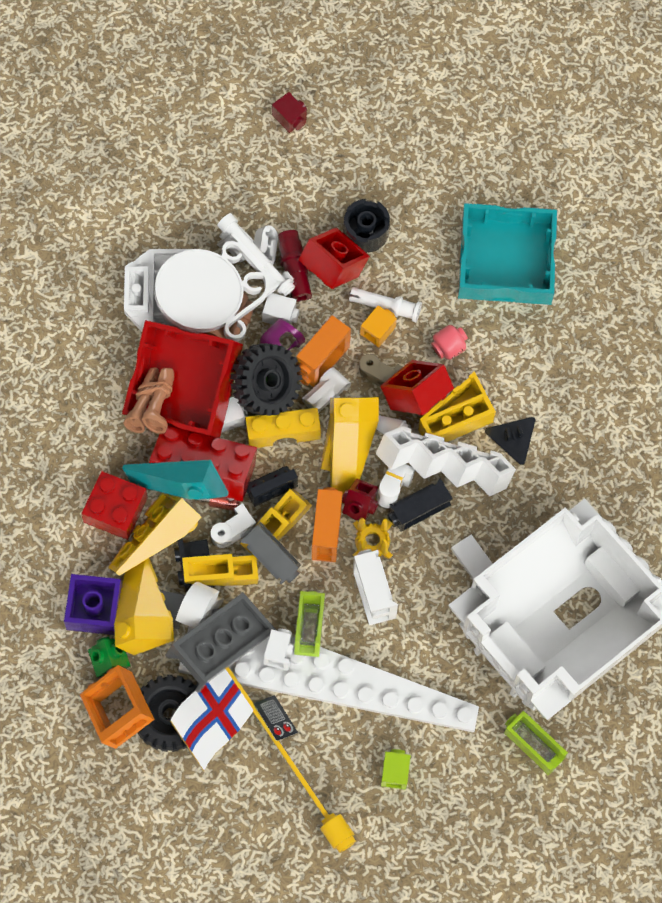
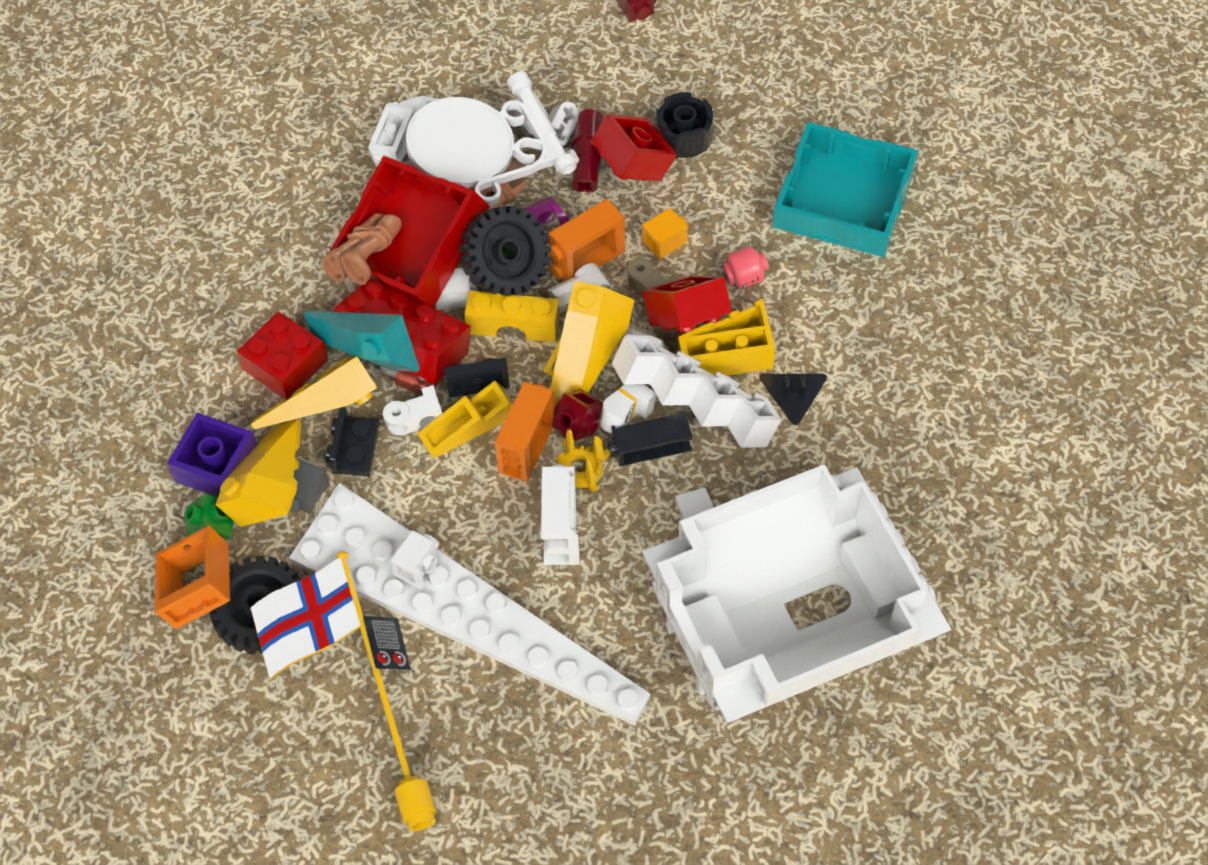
camera: 20 degrees right, 10 degrees down
(198, 604) = (335, 483): white brick -> none
(221, 570) = (380, 454): yellow slope -> none
(221, 640) = (344, 528): dark grey plate -> none
(272, 553) = (447, 448): dark grey window -> none
(280, 308) = (556, 187): white brick -> none
(309, 623) = (465, 540): lime window -> none
(395, 769) = (516, 743): lime brick -> none
(397, 306) = (694, 216): white pin -> none
(535, 742) = (710, 756): lime window -> none

